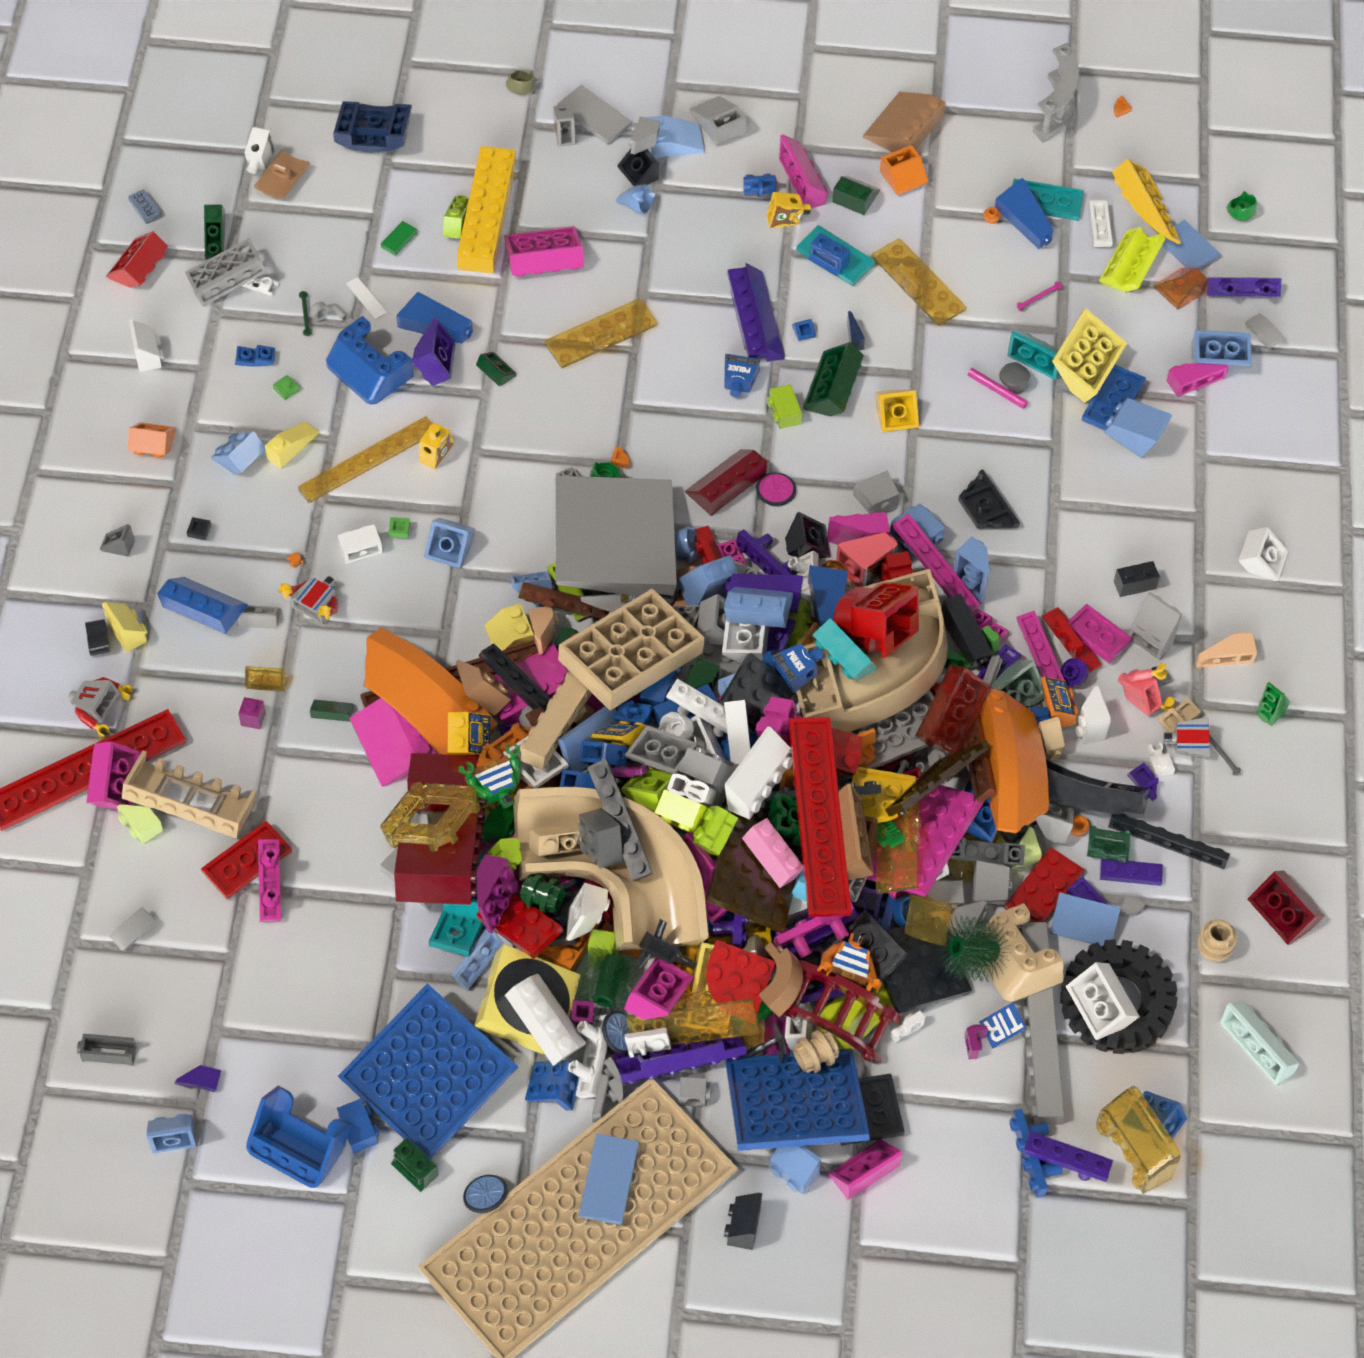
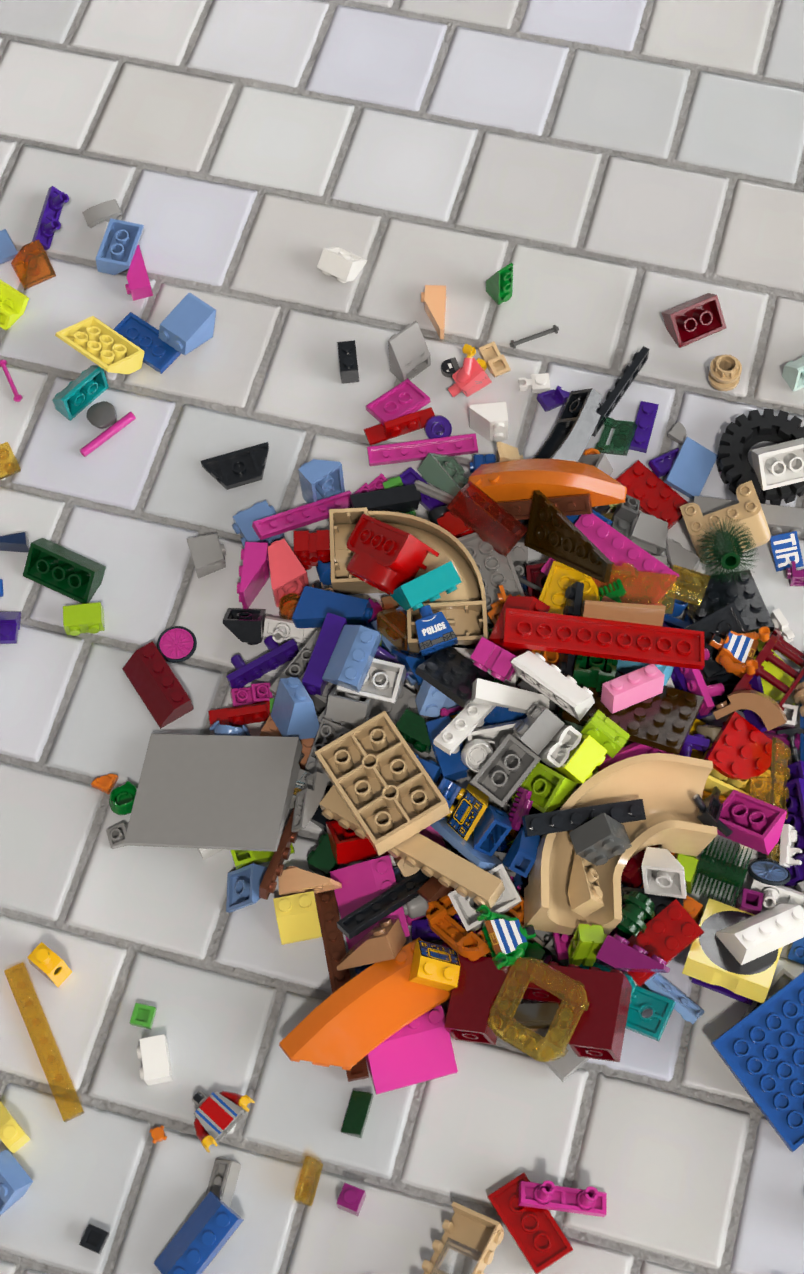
camera: 75 degrees left, 5 degrees up
(449, 542) = (174, 965): medium blue slope -> none
(740, 373) = (33, 653): blue torso -> none
(897, 409) = (112, 521): yellow slope -> none
(1058, 701) = (475, 442): slope -> none
(1190, 738) = (521, 352): torso -> none

